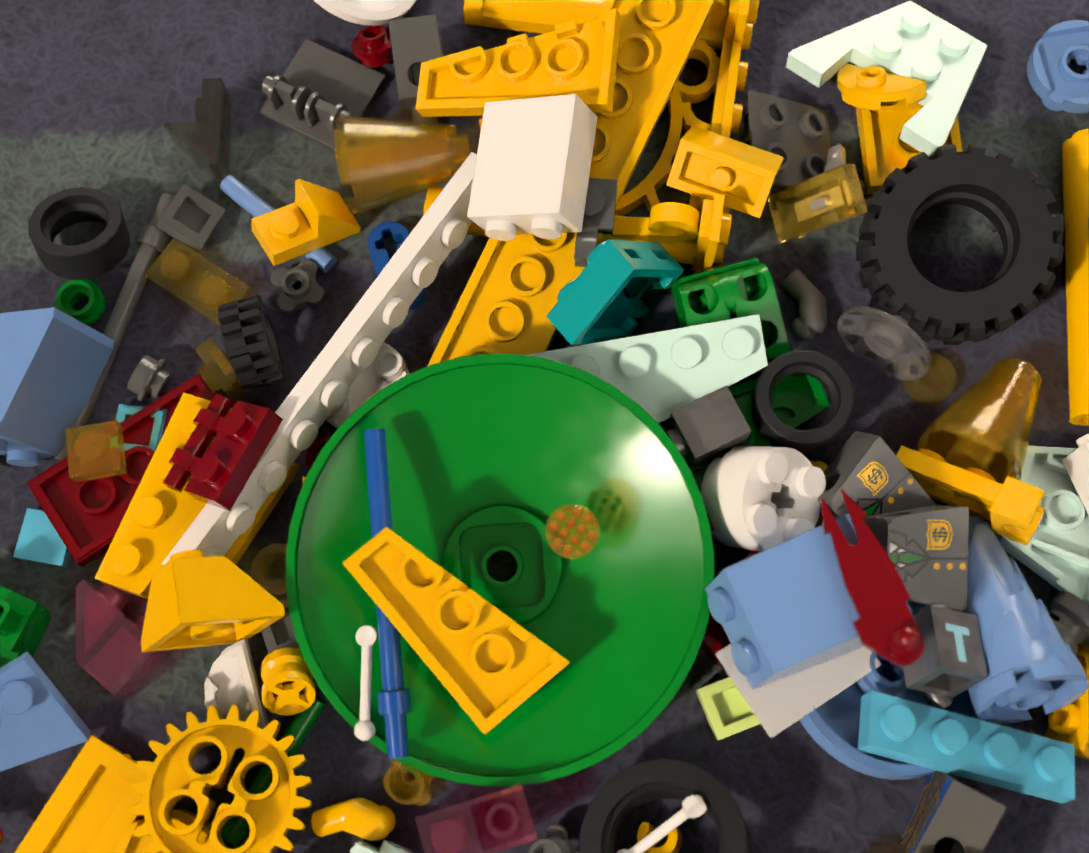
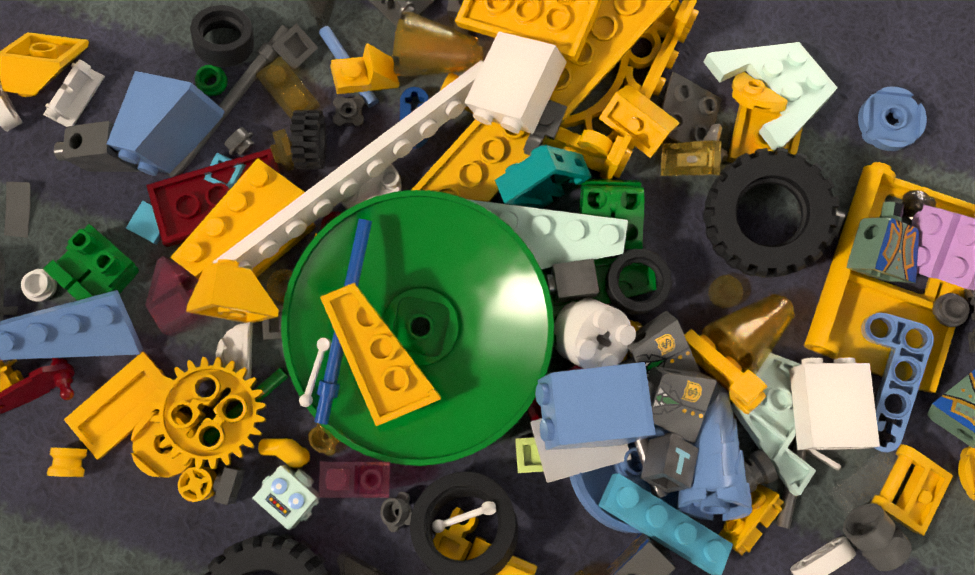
camera: 10 degrees right, 5 degrees up
(95, 451) = (193, 178): clear yellow plate -> none
(232, 456) = (274, 208): dark red plate -> none
(287, 682) = (268, 356): yellow wheel -> none
(572, 531) = (467, 320): clear yellow tile -> none
(811, 306) = (667, 223): dark grey arm -> none
(874, 590) = (637, 414): dark red piece -> none
(884, 342) = (703, 260): clear dish -> none

